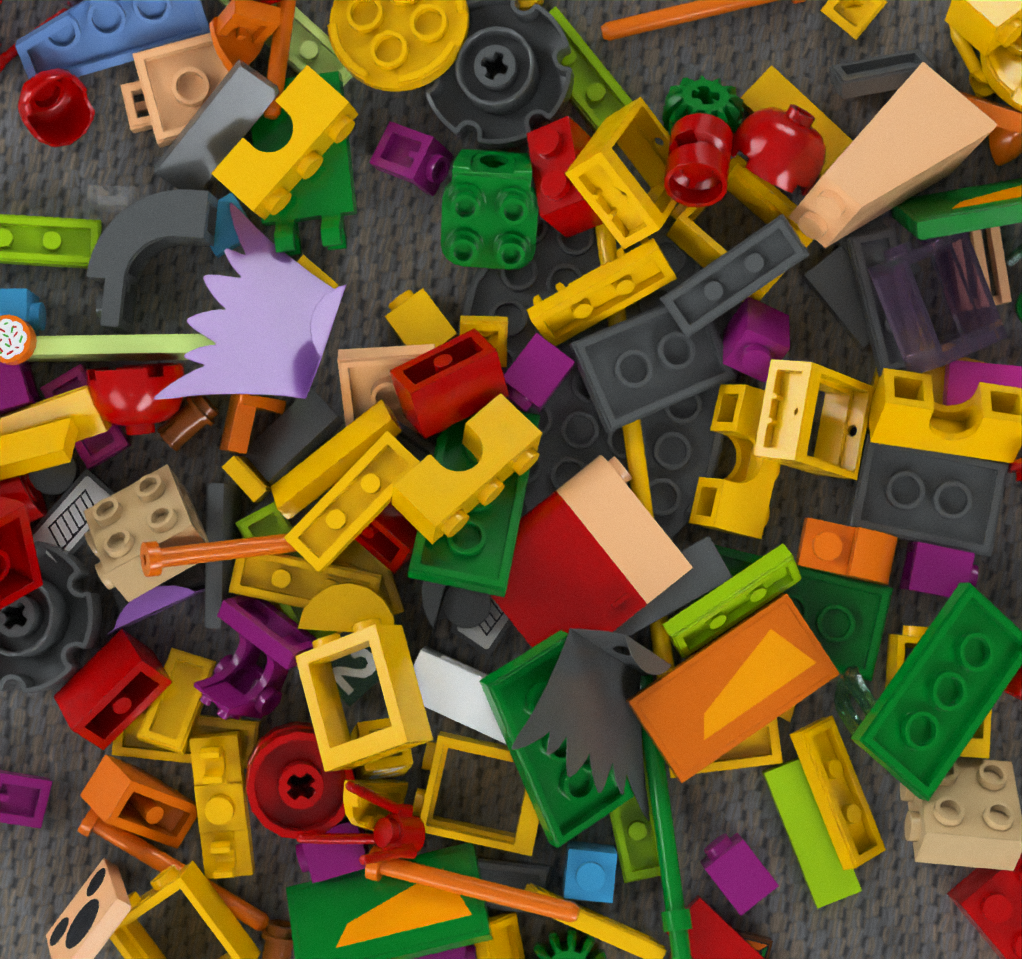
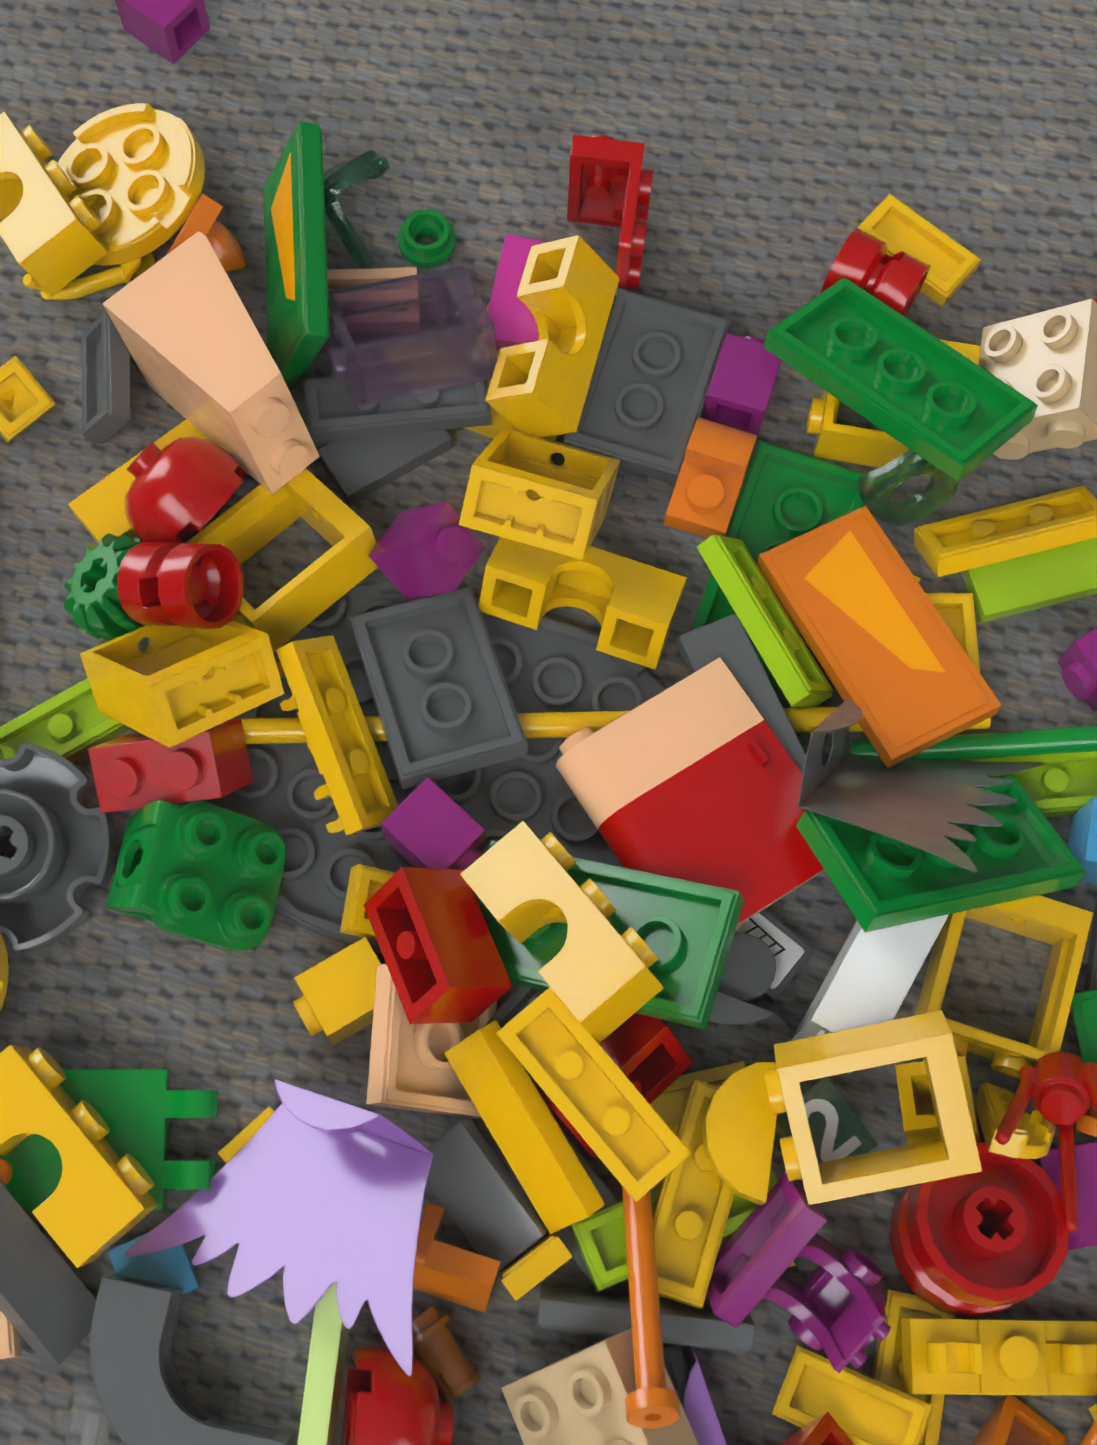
camera: 90 degrees left, 15 degrees down
(412, 157) = (103, 982): magenta bracket -> none
(735, 275) = (341, 558): dark grey tile -> none

